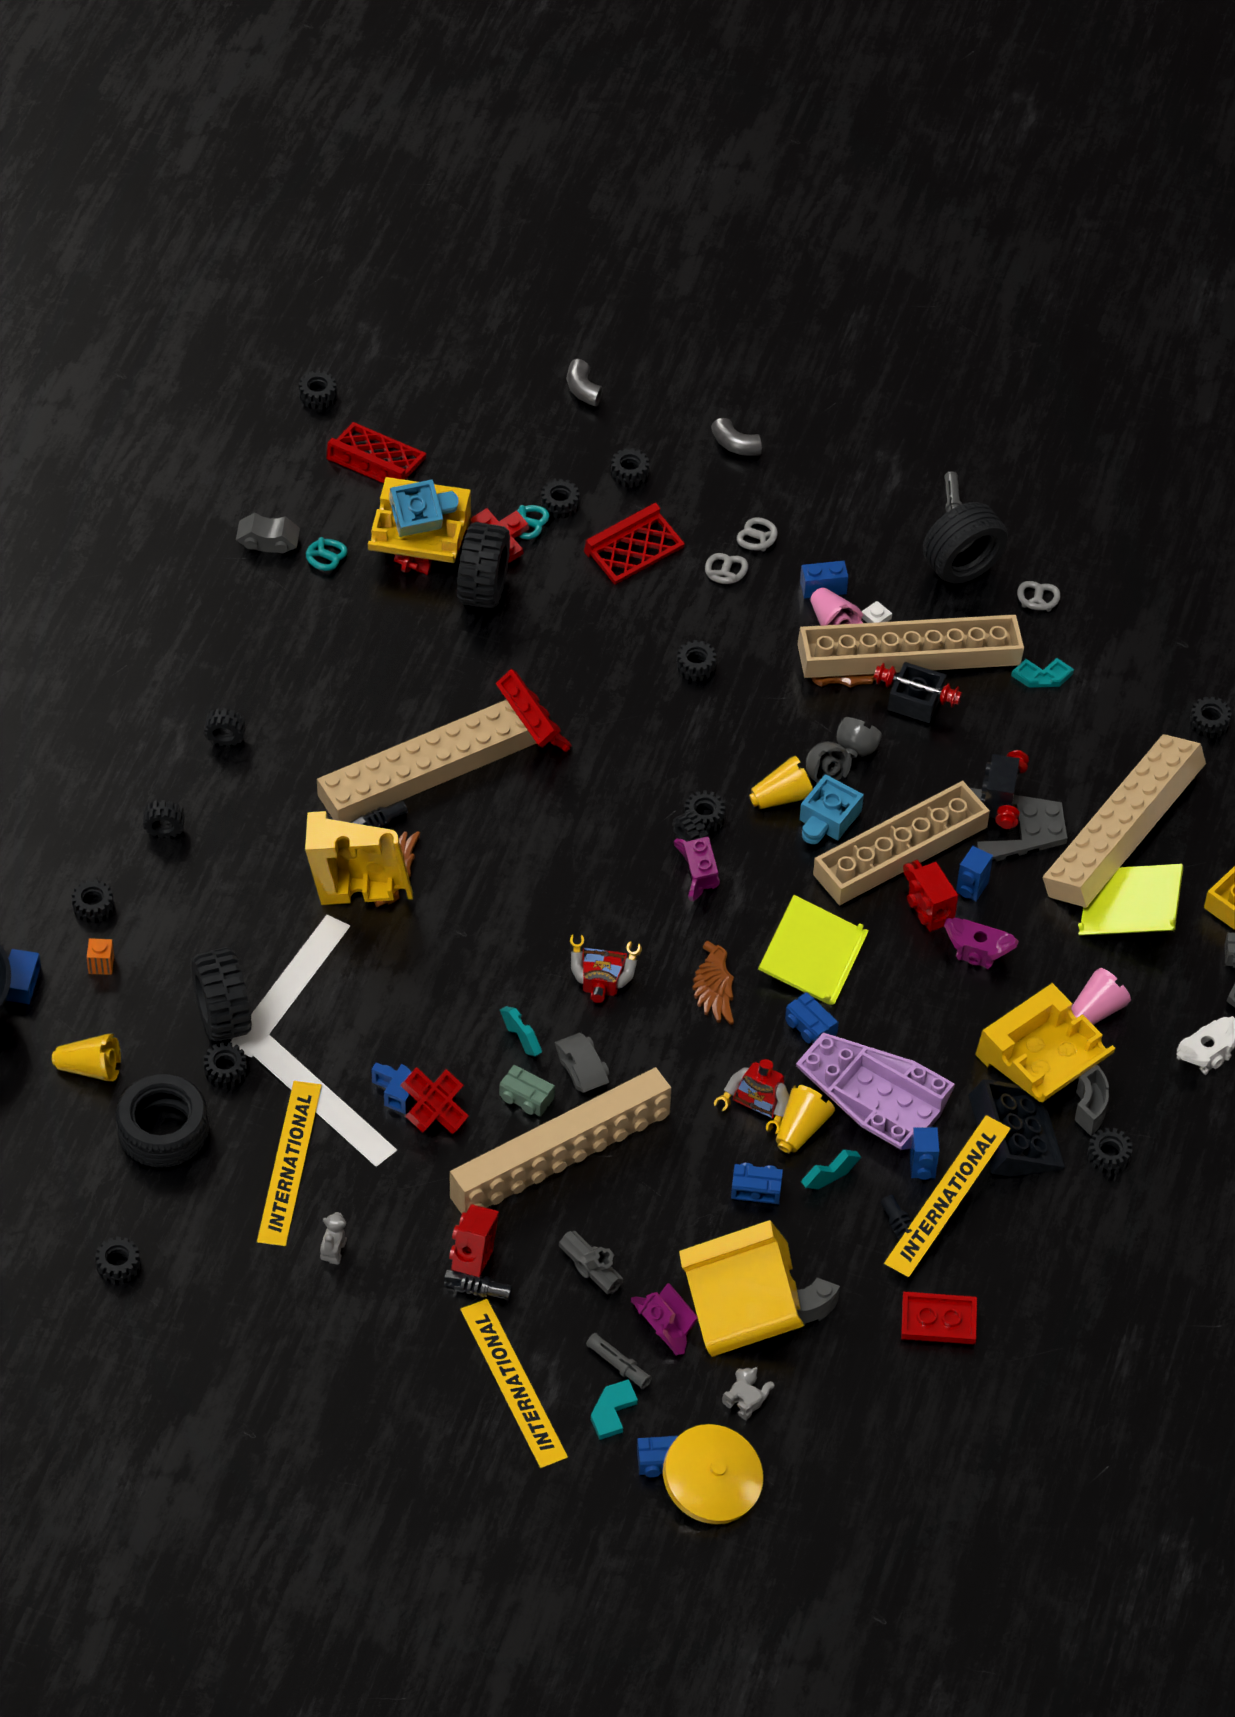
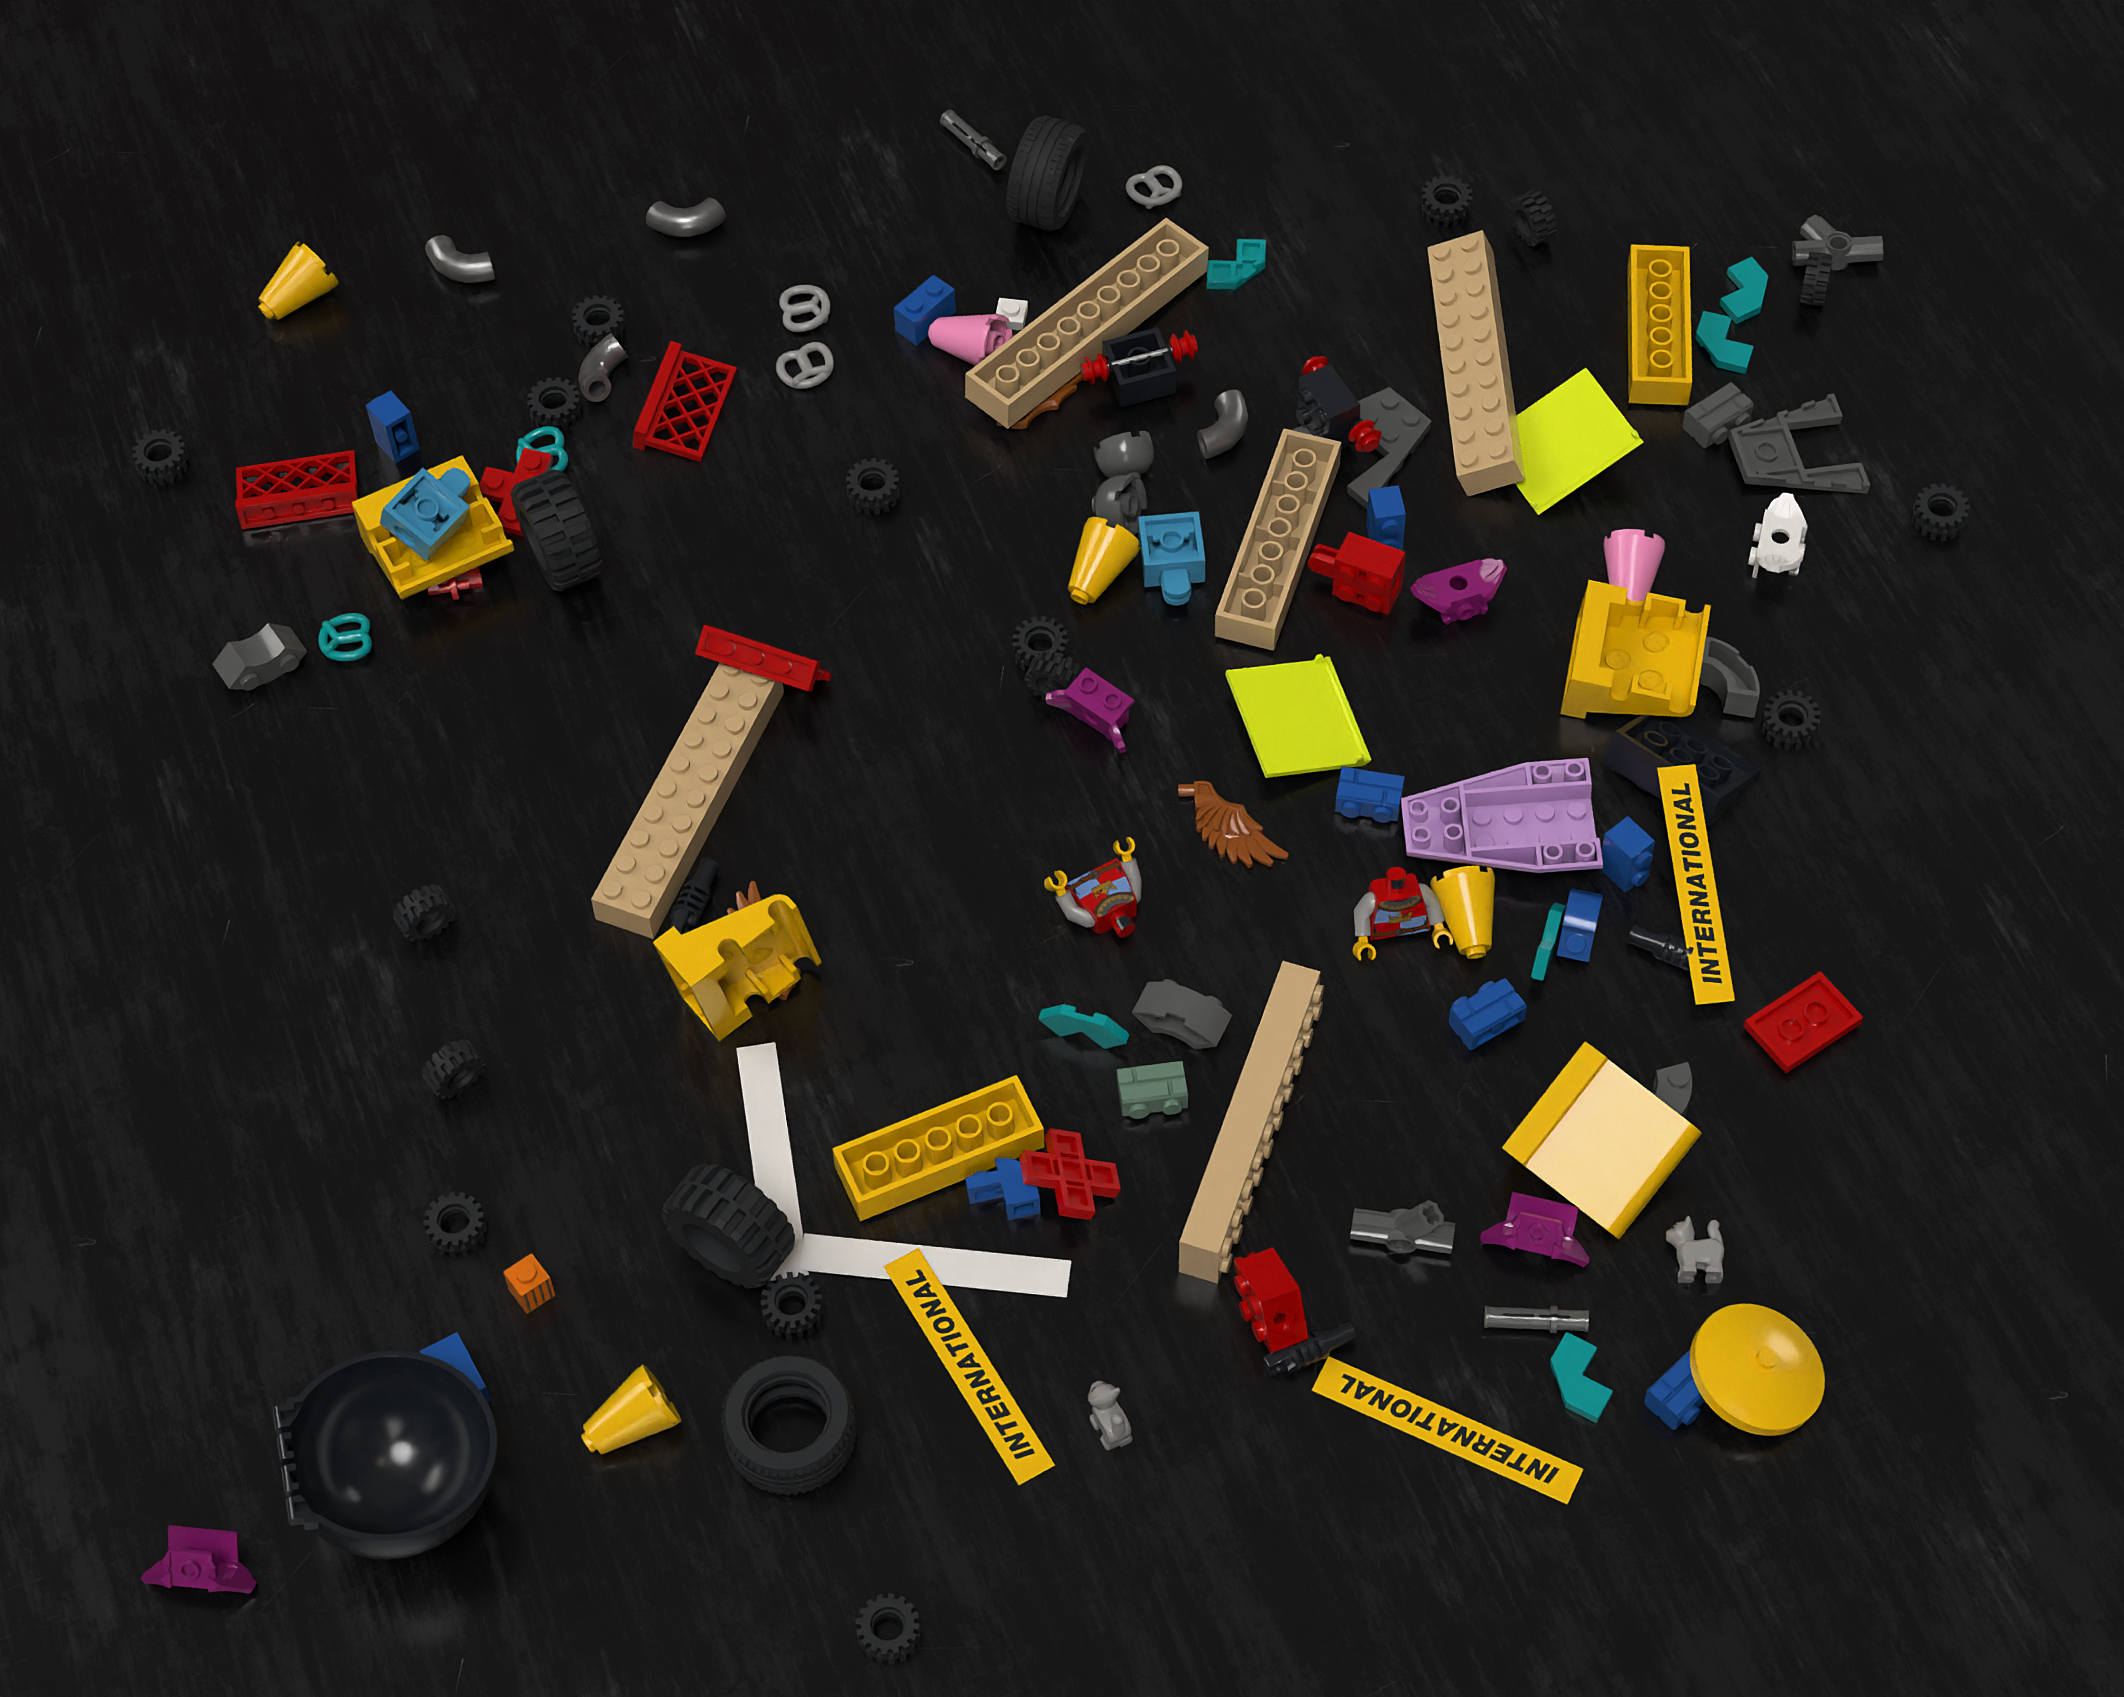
camera: 35 degrees left, 5 degrees up
(377, 1036) = (938, 1147): none -> yellow brick
(454, 451) = (392, 426): none -> blue brick
(478, 337) = (296, 283): none -> yellow cone
(605, 492) = (598, 366): none -> flat silver cylinder
(860, 1168) = (1579, 925): none -> blue brick
(938, 762) = (1228, 428): none -> flat silver cylinder

